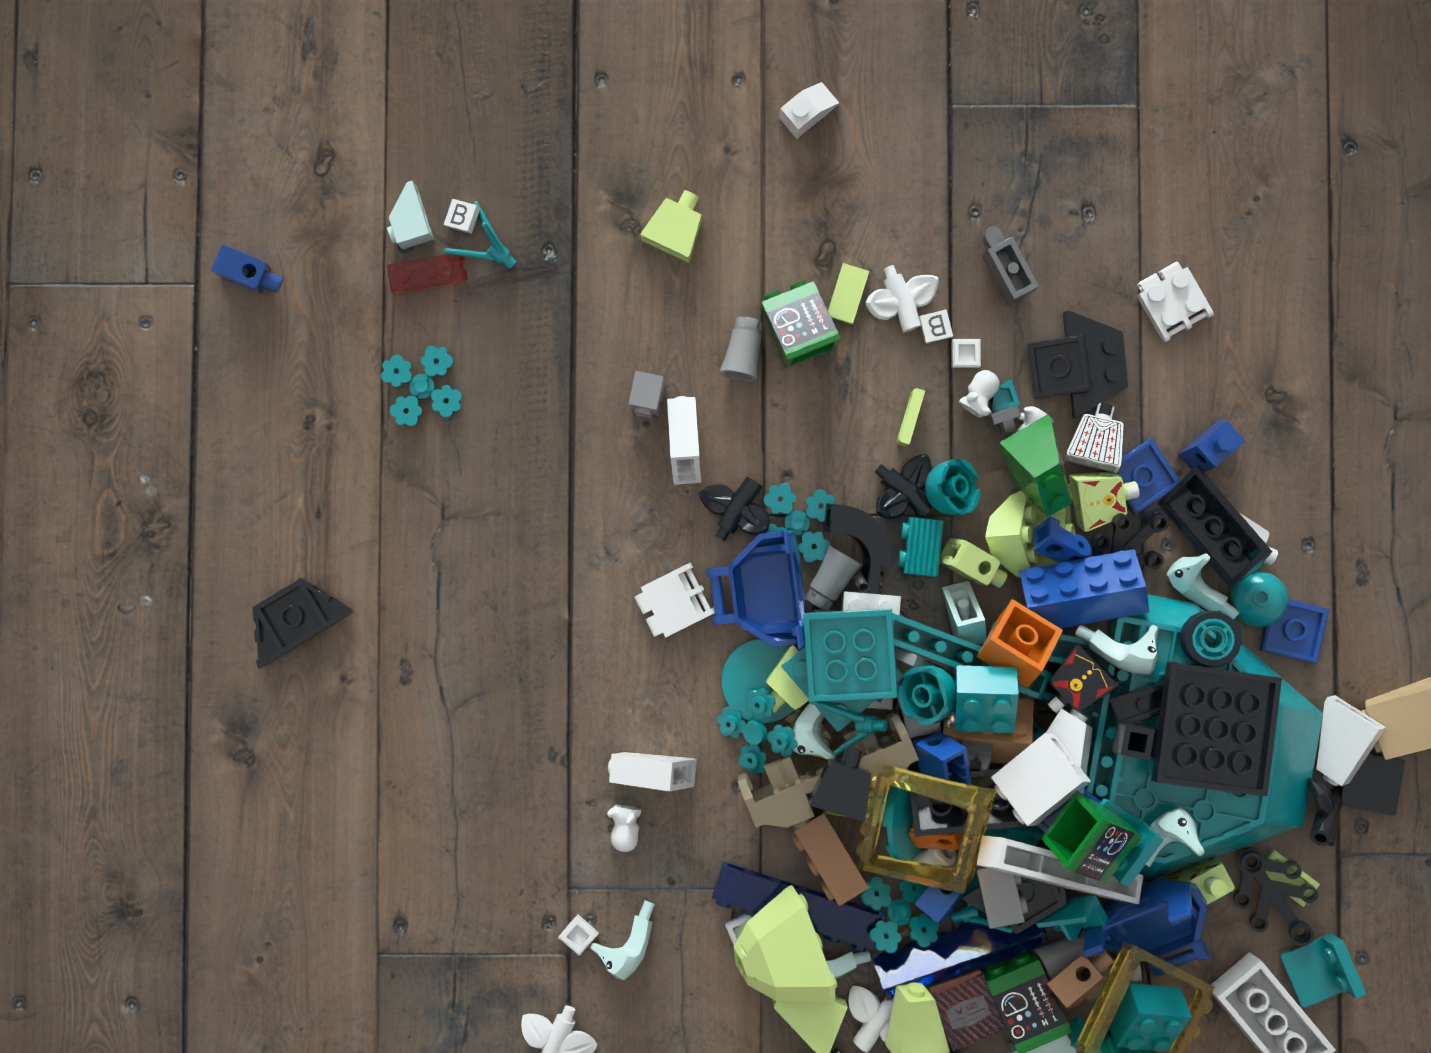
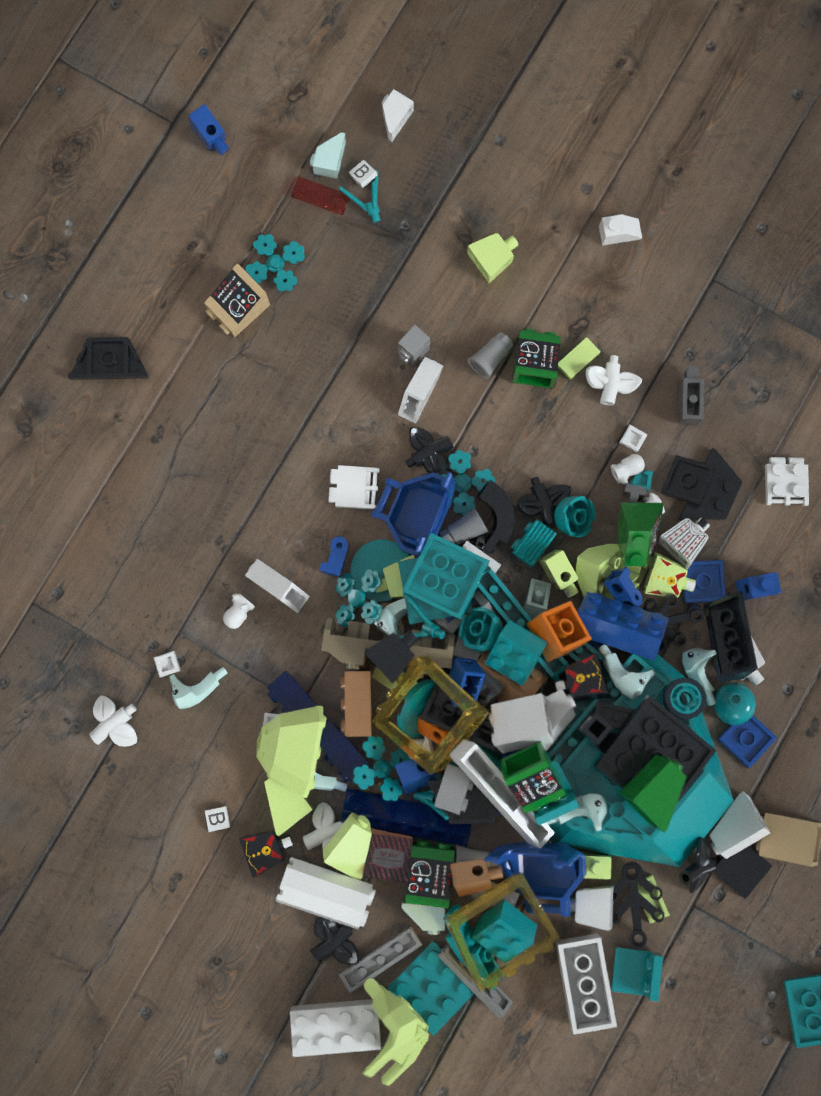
camera: 25 degrees right, 5 degrees down
(404, 462) = (236, 301): none -> slope
(457, 117) = (396, 112): none -> white slope
(700, 686) = (337, 557): none -> blue leg
(910, 417) = (573, 457): yellowish green tile -> none
(935, 326) = (623, 411): white tile -> none
(1076, 914) = (494, 835): teal panel -> none
(1231, 927) = (594, 907): none -> white torso
(1244, 771) = (656, 791): none -> green slope

